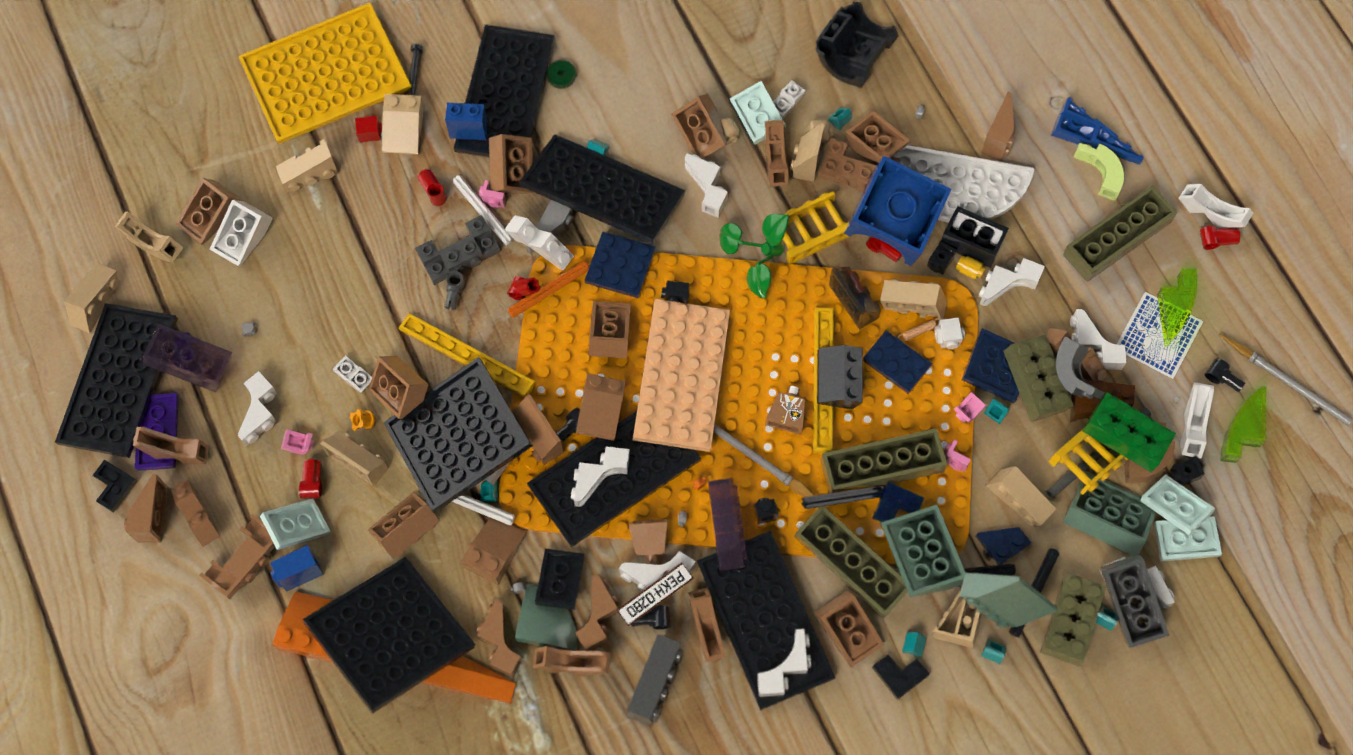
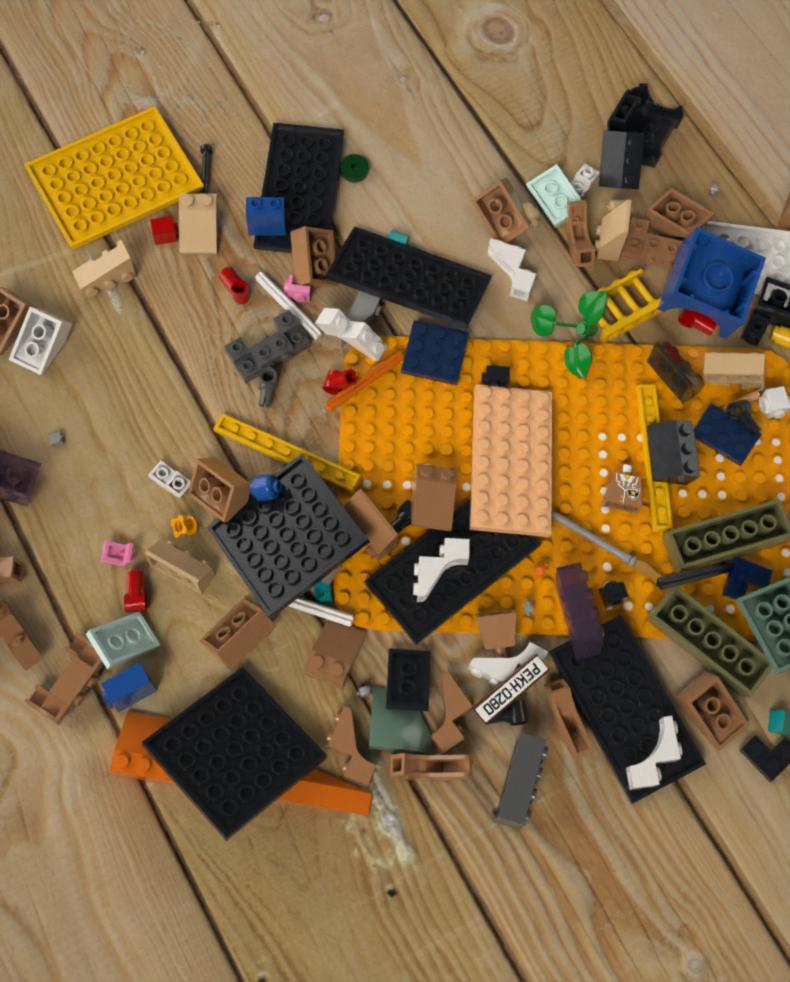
camera: 10 degrees left, 0 degrees up
(258, 417) = (74, 529): white arch -> none
(440, 387) = (265, 487): none -> blue head
(609, 329) = (432, 418): medium nougat slope -> none
(825, 79) = (621, 159): none -> black slope
(841, 117) = (638, 197): teal slope -> none
(912, 341) = (744, 416): none -> black pin

